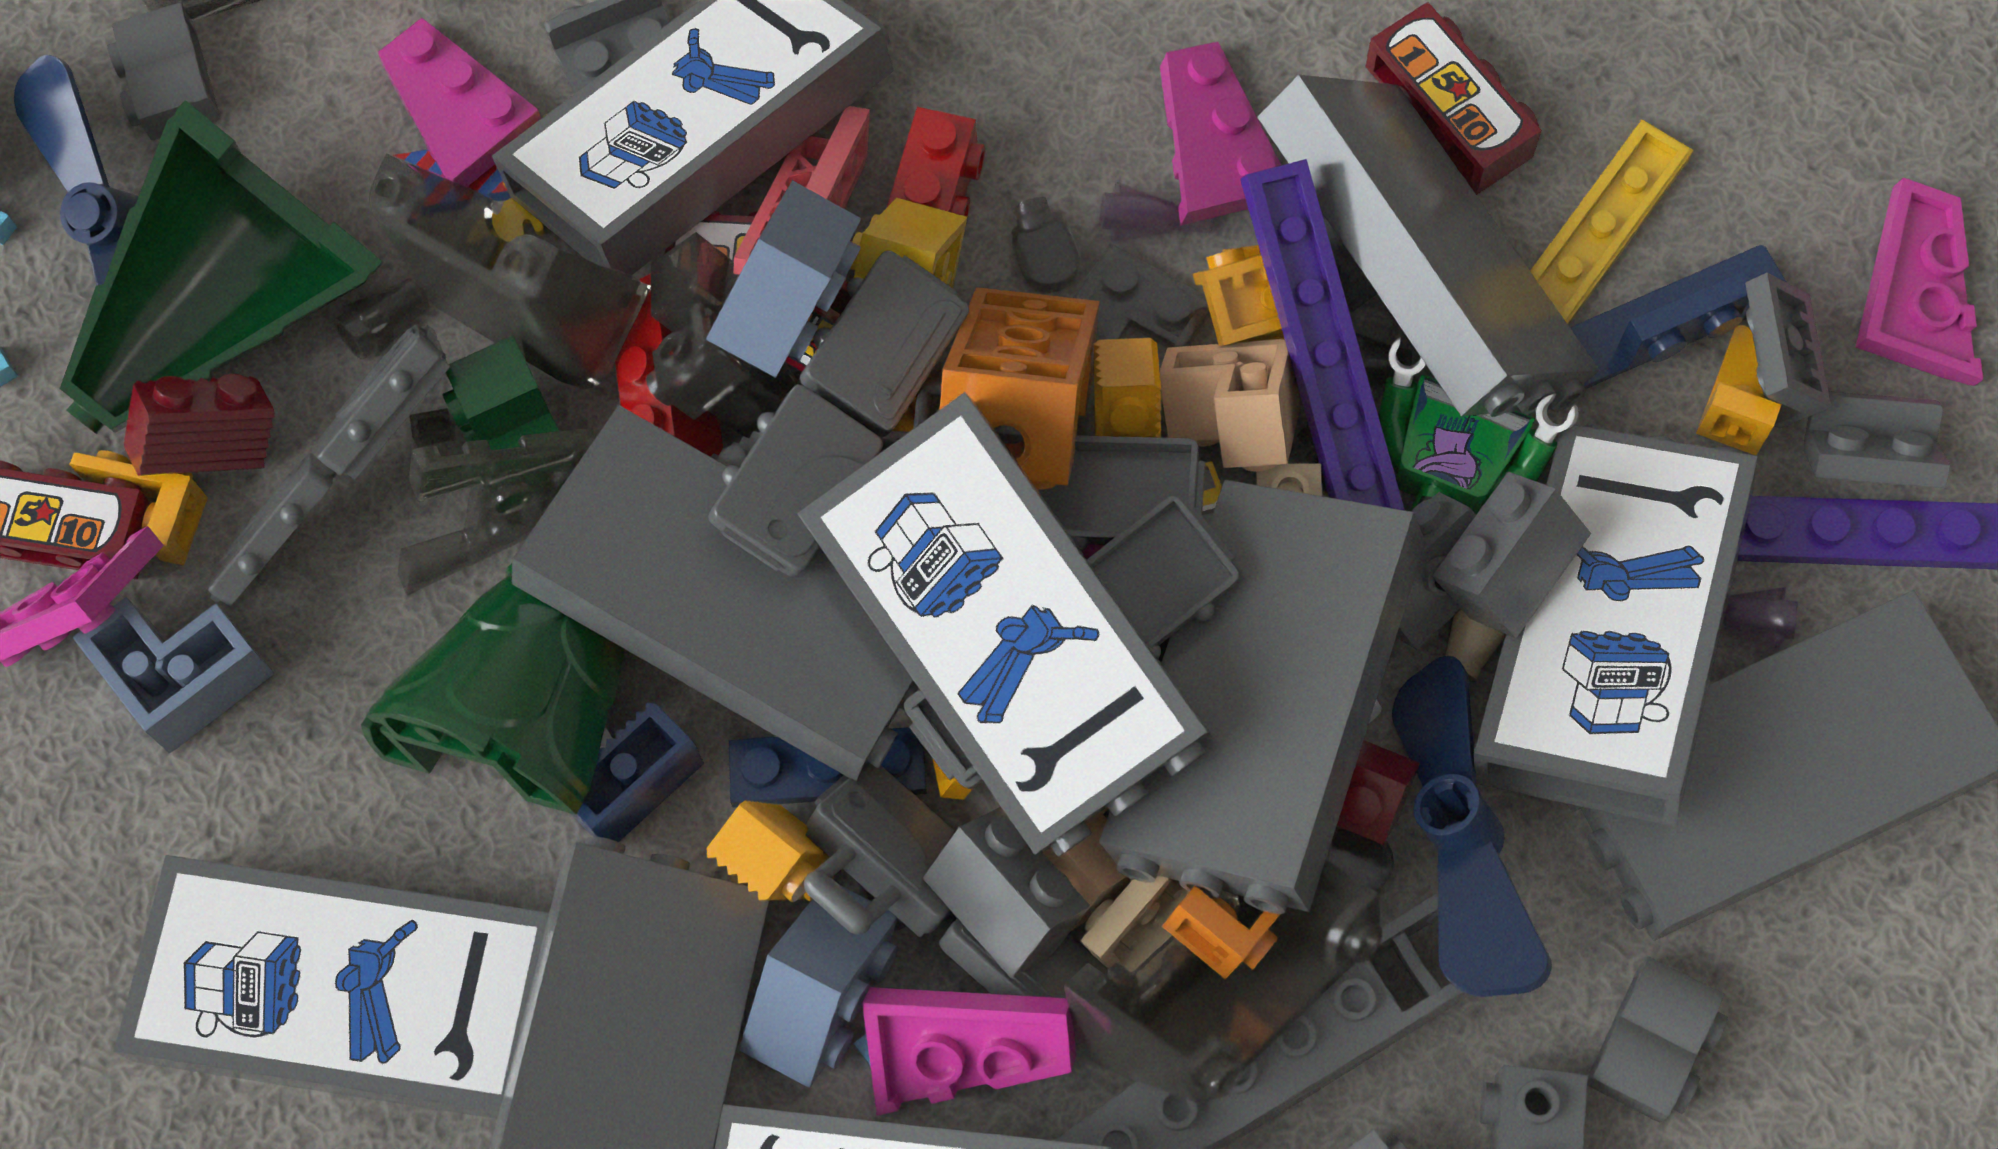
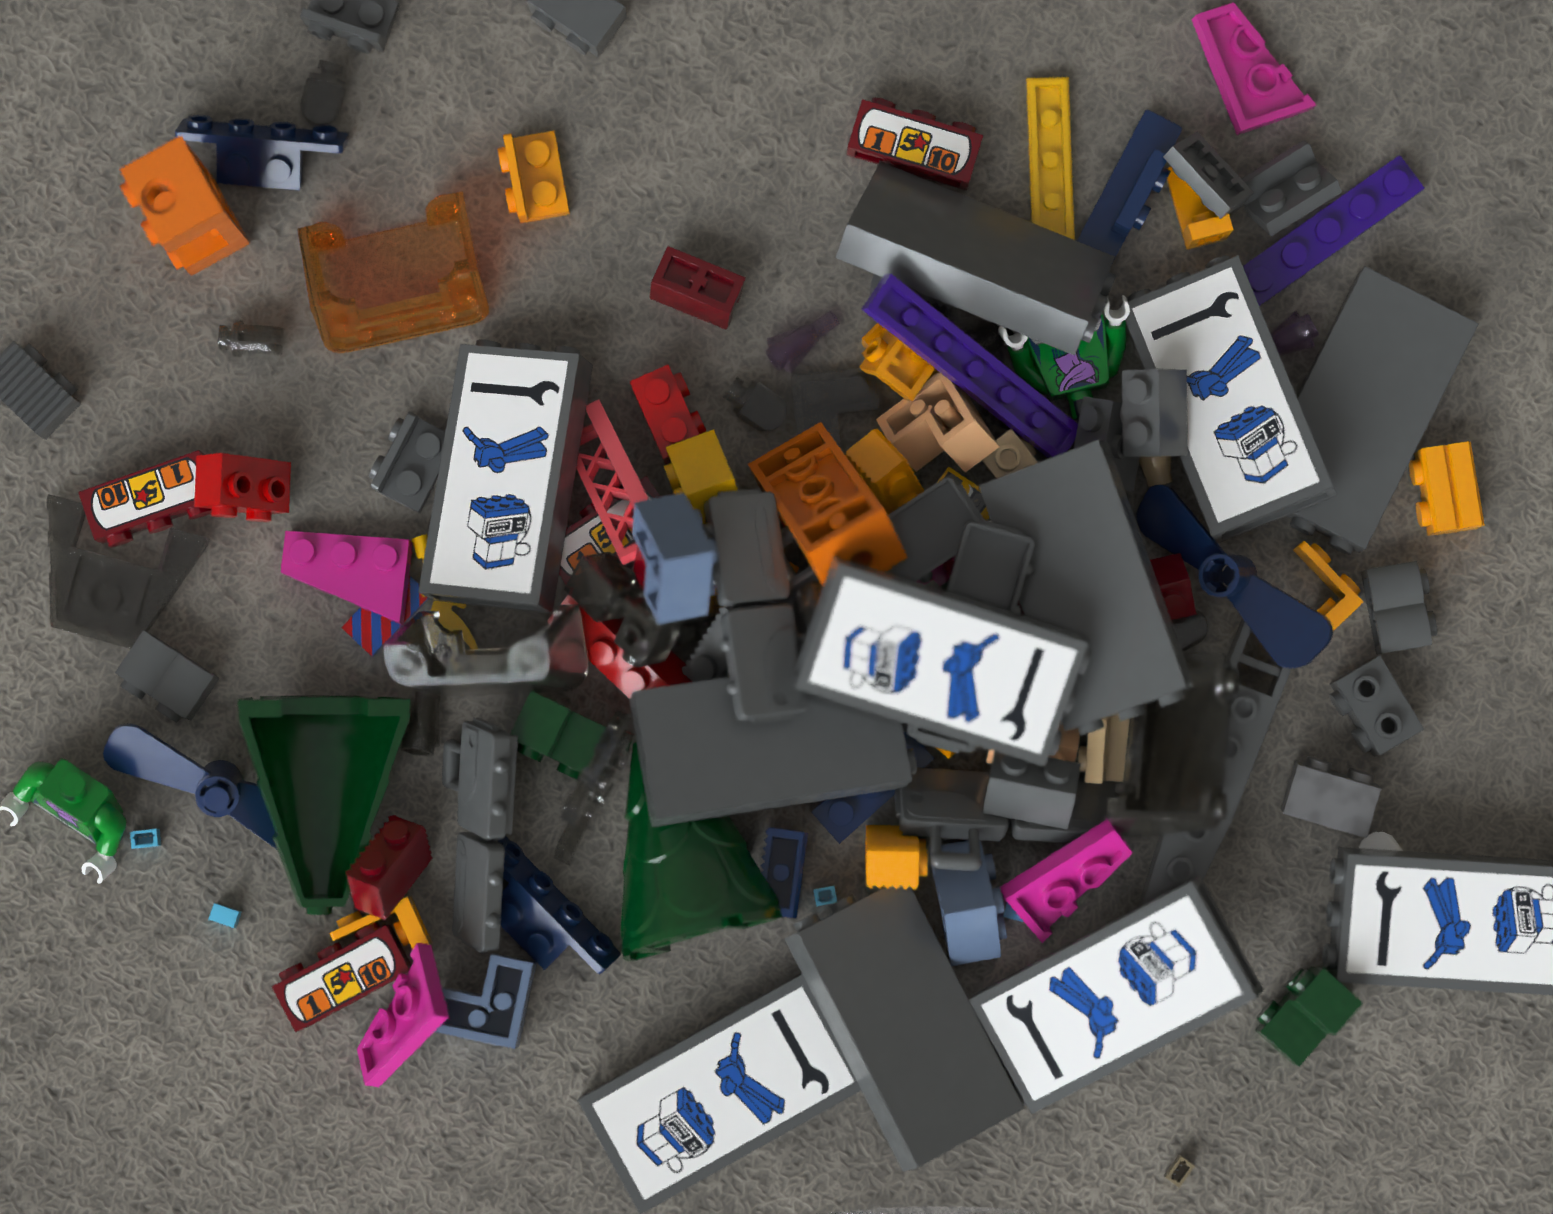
camera: 40 degrees left, 15 degrees up
(326, 617) = (544, 919): none -> dark blue bracket
(662, 845) = (825, 896): none -> medium azure piece
(1078, 76) = (696, 287): none -> dark red hinge
(1212, 132) = (798, 265): dark pink wing -> none
(1216, 936) = (1155, 730): orange bracket -> none
(1602, 962) = (1342, 586): none -> light orange bracket
(1831, 940) = (1447, 488): none -> light orange brick

